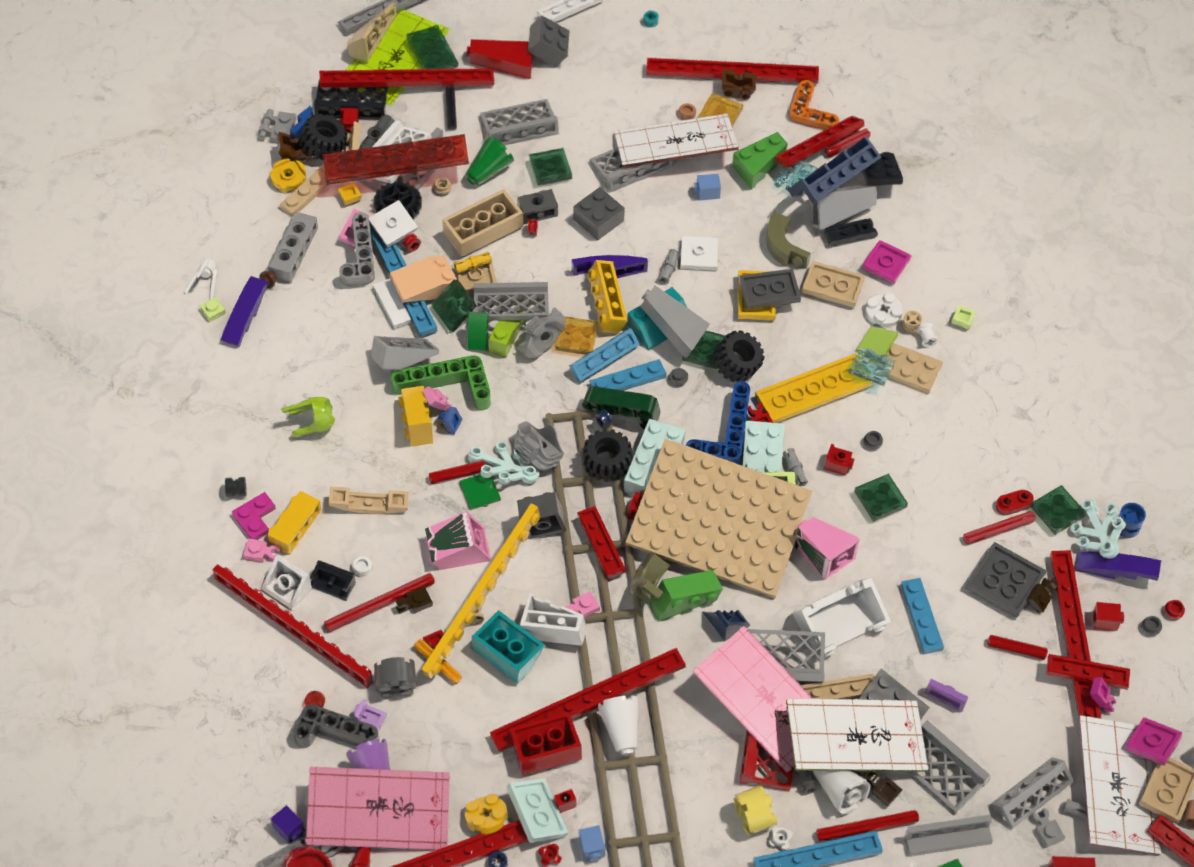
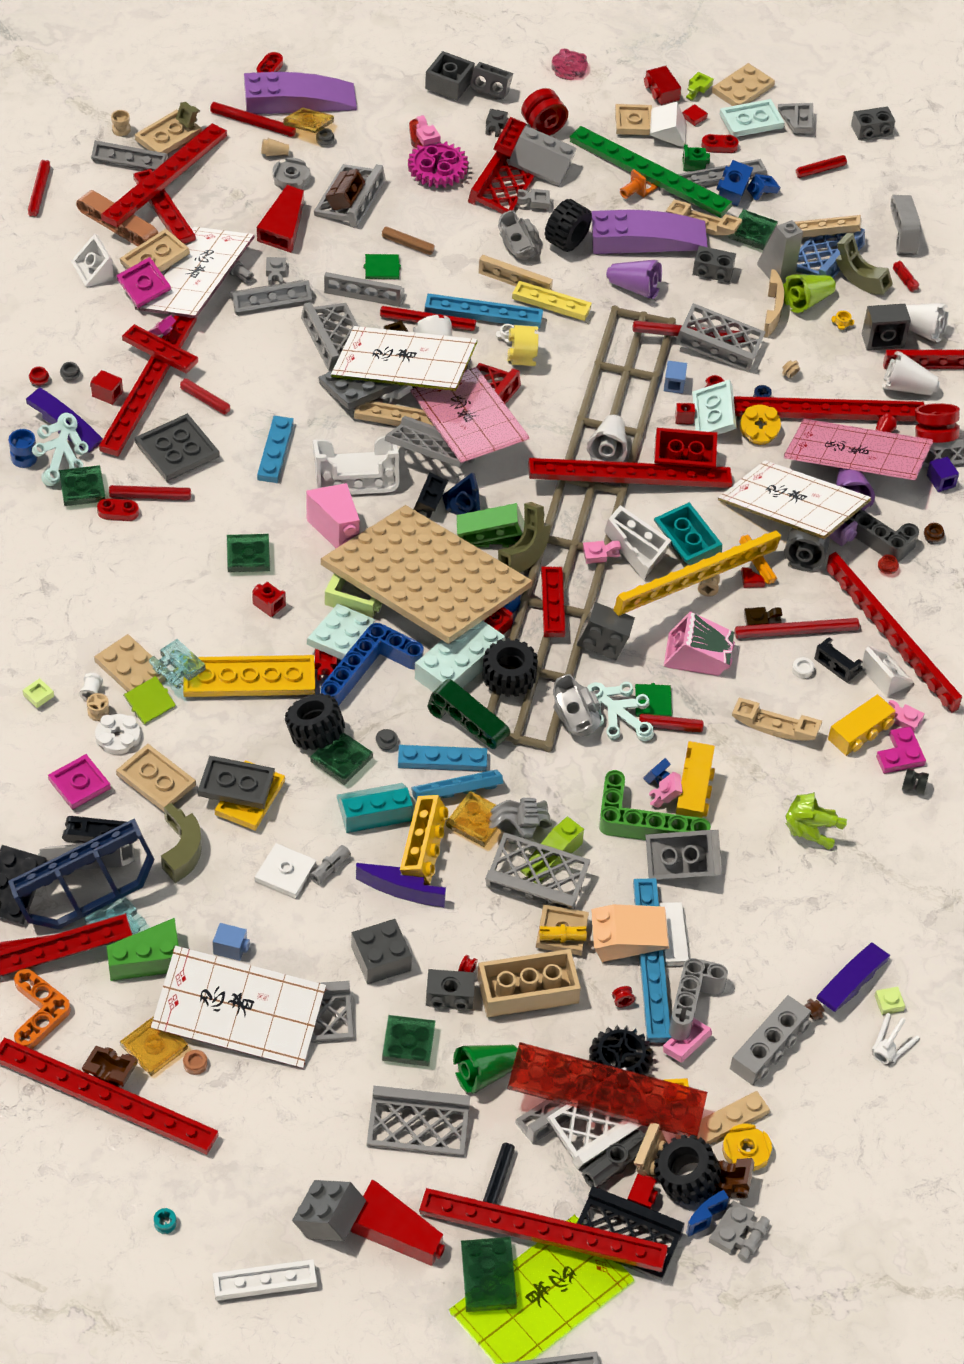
camera: 160 degrees left, 5 degrees down
(280, 749) = (934, 532): none -> reddish brown plate
(368, 37) = (577, 1314): tan wedge -> none
(393, 224) = (640, 1012): white plate -> none
(422, 717) = (794, 499): none -> white piece
(454, 305) = (603, 887): clear green plate -> none
(478, 331) = (589, 850): green slope -> none
(603, 418) = (495, 708): dark blue bush -> none
(674, 320) = (365, 768): light grey slope -> none
(757, 608) = (431, 494): none -> black hinge
(795, 466) = (316, 607): light grey pin -> none
(873, 440) = (219, 608): dark grey plate -> none
(946, 695) = (297, 378): medium lavender plate -> none
(1040, 596) = (156, 420): dark brown plate -> none

